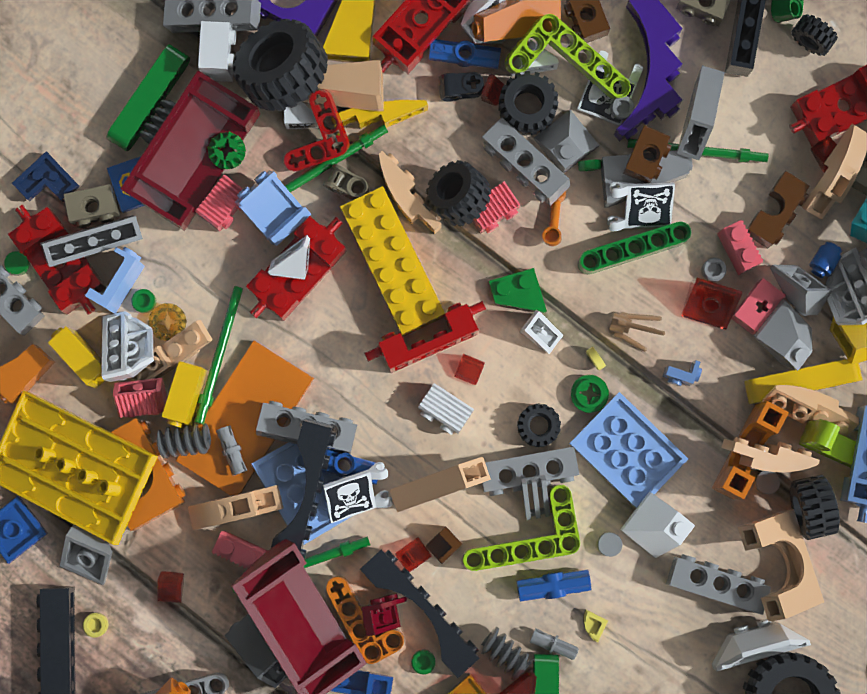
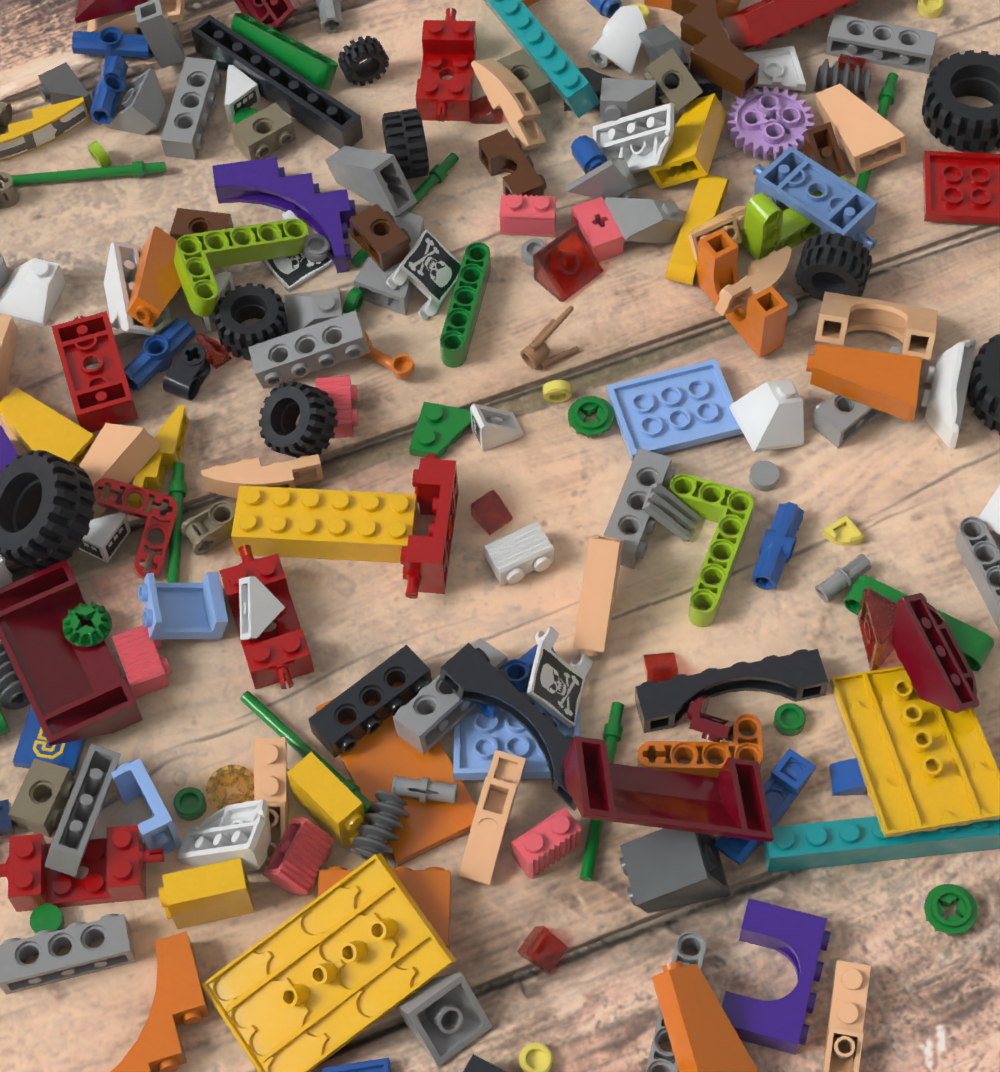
camera: 55 degrees left, 25 degrees down
(239, 360) = (376, 685): none -> black brick
(443, 545) = (668, 629): reddish brown panel -> none
(505, 653) = (826, 624): dark grey piece -> none
(553, 425) = (594, 491): black tyre -> none
(677, 376) = (625, 325): medium blue bracket -> none
(725, 589) = (868, 377): none -> orange slope
(747, 119) = (406, 141): none -> black tyre

